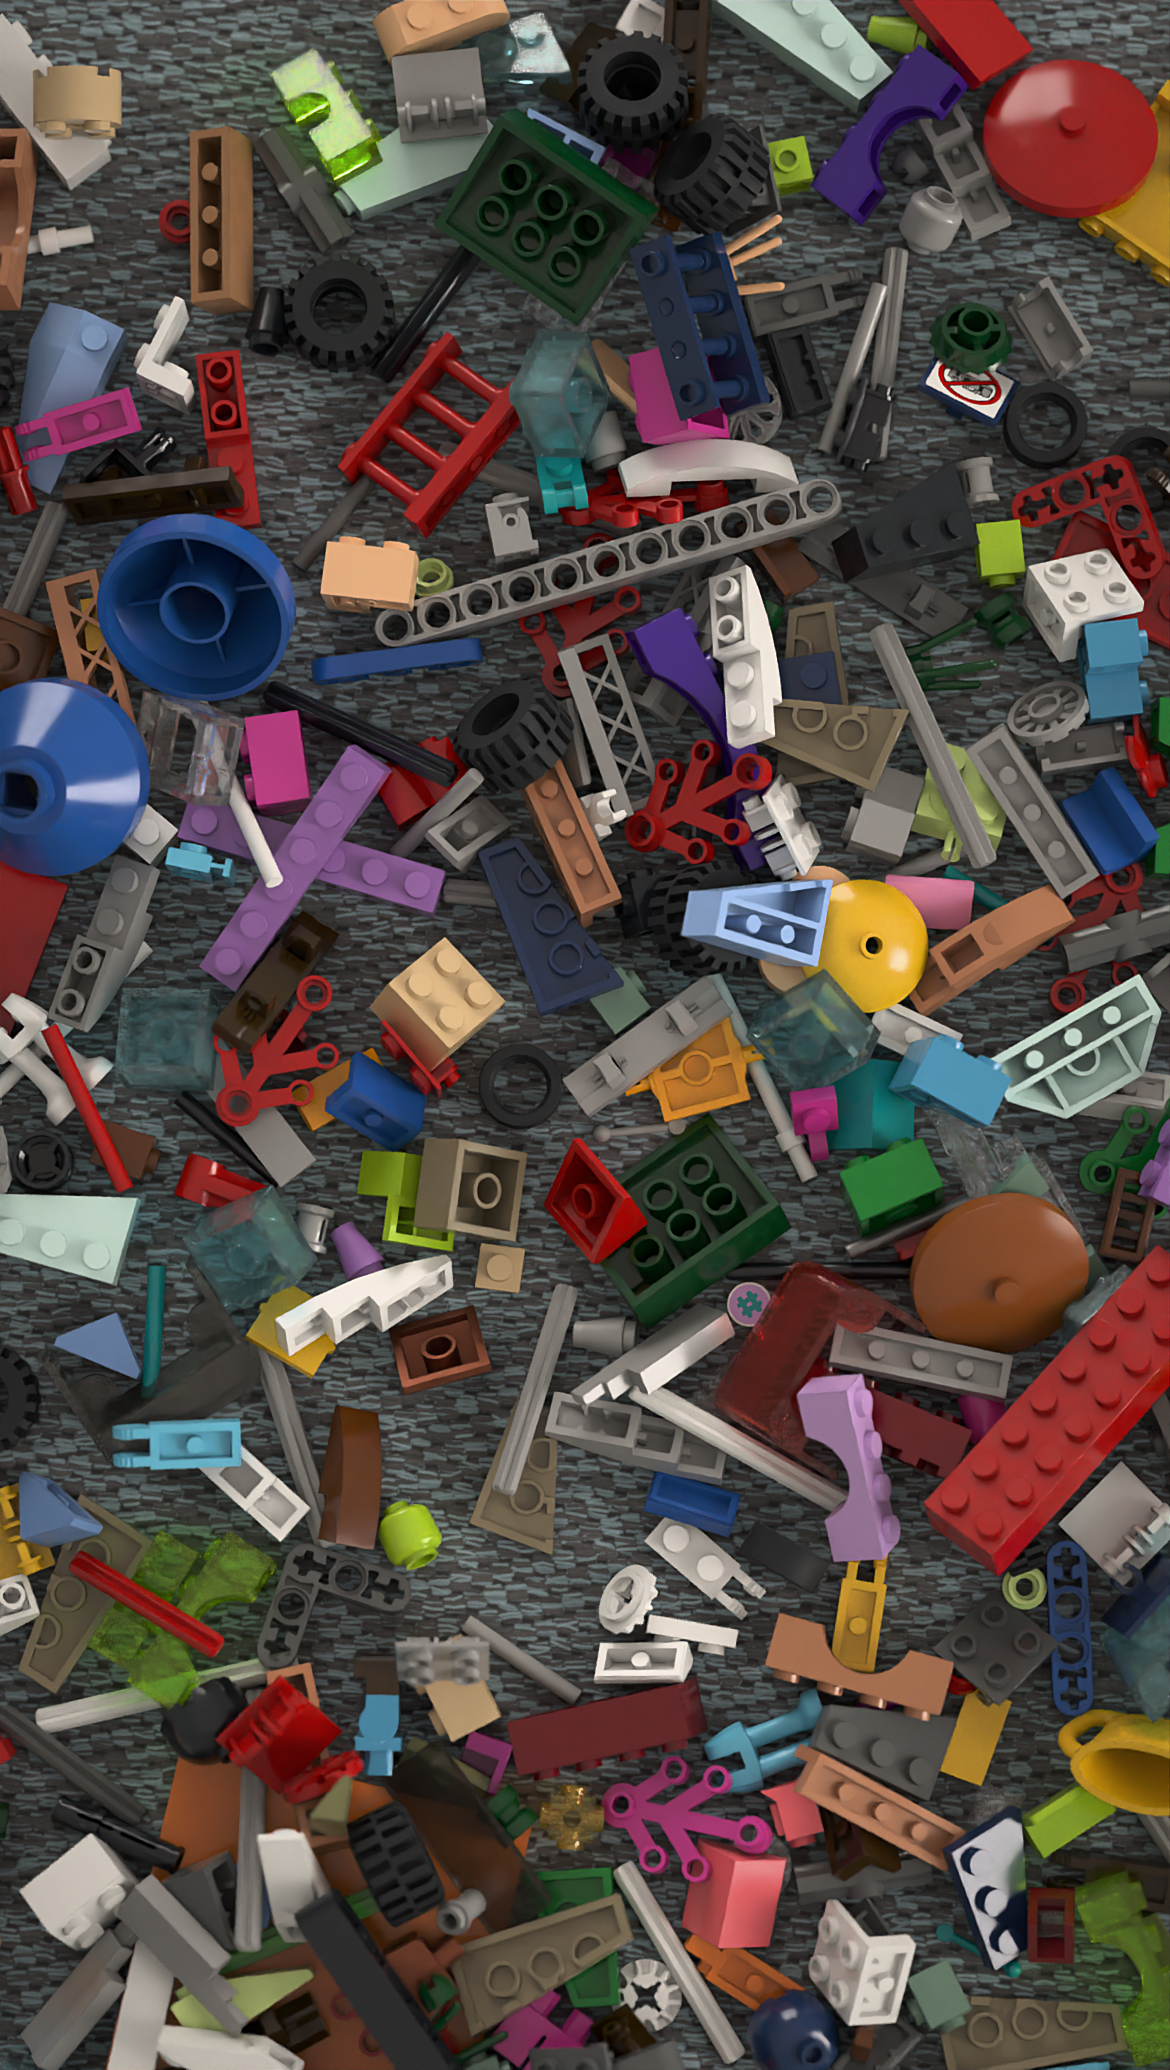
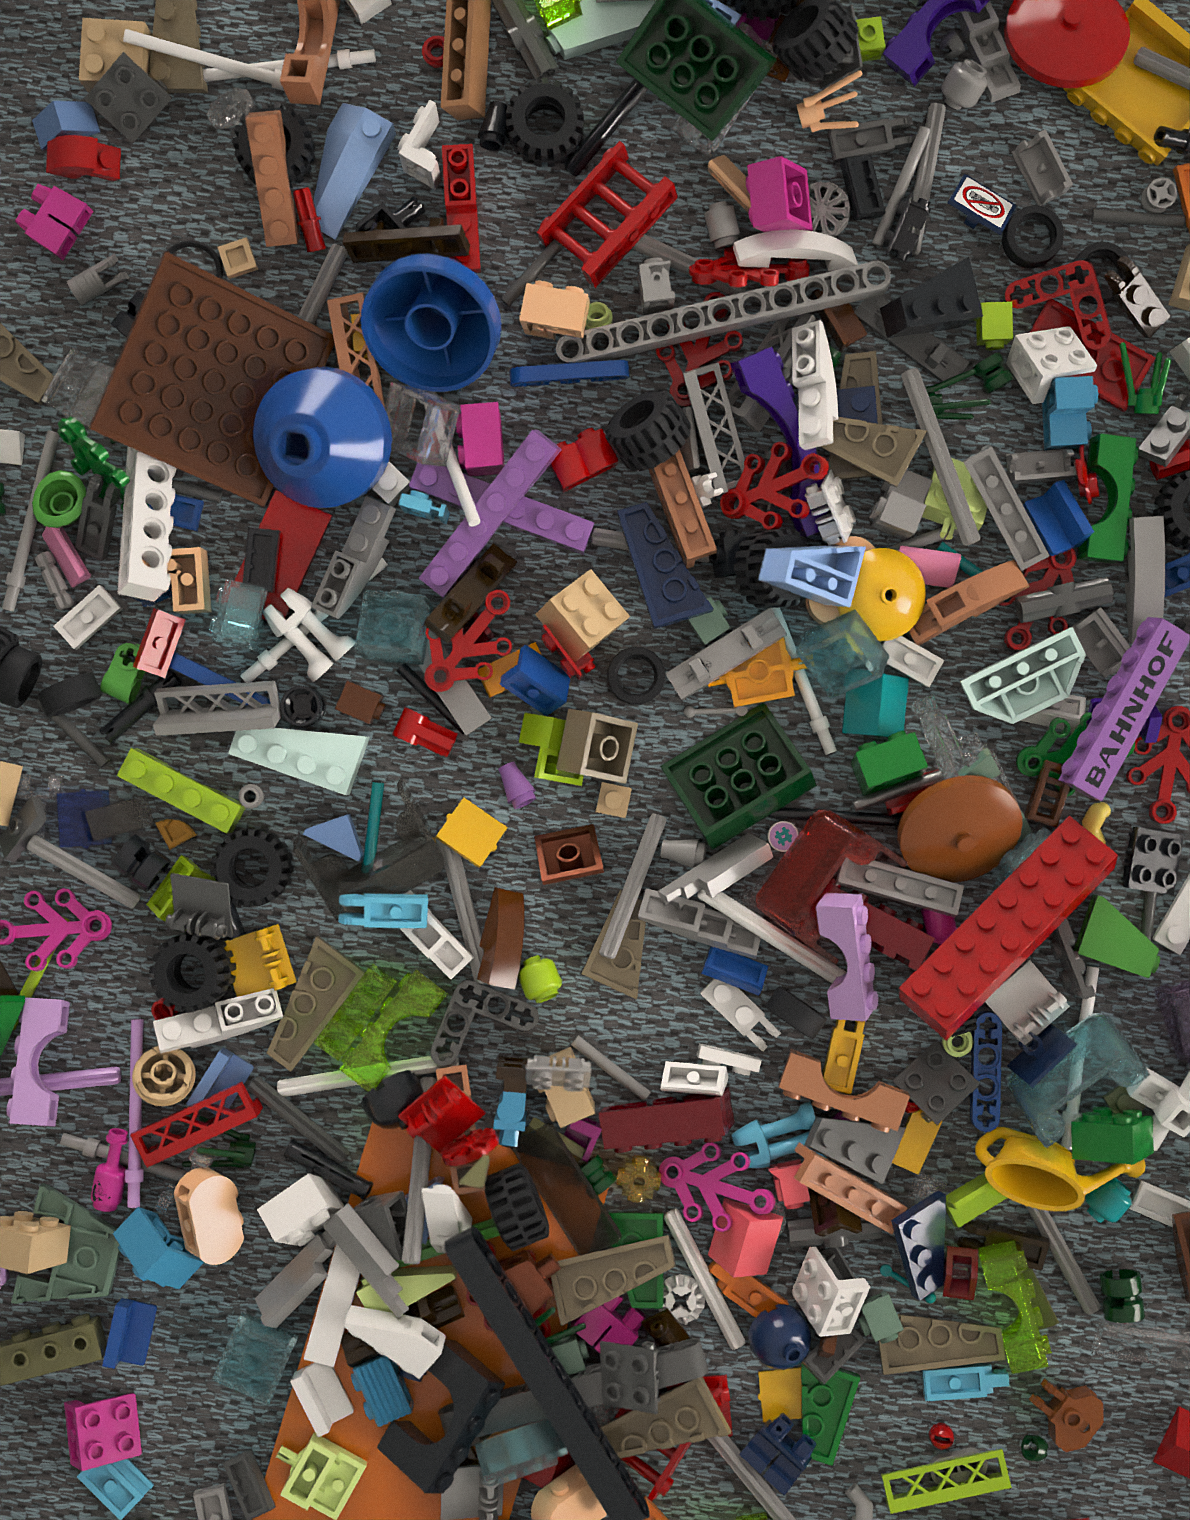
camera: 10 degrees right, 5 degrees up
(50, 1514) = (294, 948): medium blue slope -> none
(83, 424) = (360, 189): dark pink hinge -> none
(87, 1108) = (334, 672): red bar -> none
(146, 1604) = (356, 1017): red axle -> none
(250, 1249) = (442, 777): clear light blue brick -> none
(313, 1224) = (485, 764): light grey bush -> none
(362, 734) = (542, 422): black axle -> none
(376, 1298) = (527, 816): white slope -> none
(437, 813) = (591, 481): light grey bar -> none
(438, 1995) = (540, 1300): dark green hinge -> none
(456, 1915) = (556, 1242): light grey pin -> none
(468, 831) = (612, 496): light grey slope -> none
(560, 394) = (697, 188): clear light blue brick -> none
(561, 483) = (692, 244): teal plate -> none
(592, 1204) = (680, 761): red slope -> none
(629, 1583) = (686, 1021): white gear -> none
(720, 319) = (799, 145): dark blue fence -> none
(814, 1114) = (836, 710): dark pink plate -> none
(946, 1078) = (933, 690): dark azure brick -> none
(971, 338) = (986, 171): dark green piece -> none
(977, 481) = (983, 273): light grey bush -> none
(1048, 716) = (1023, 441): light grey wheel -> none

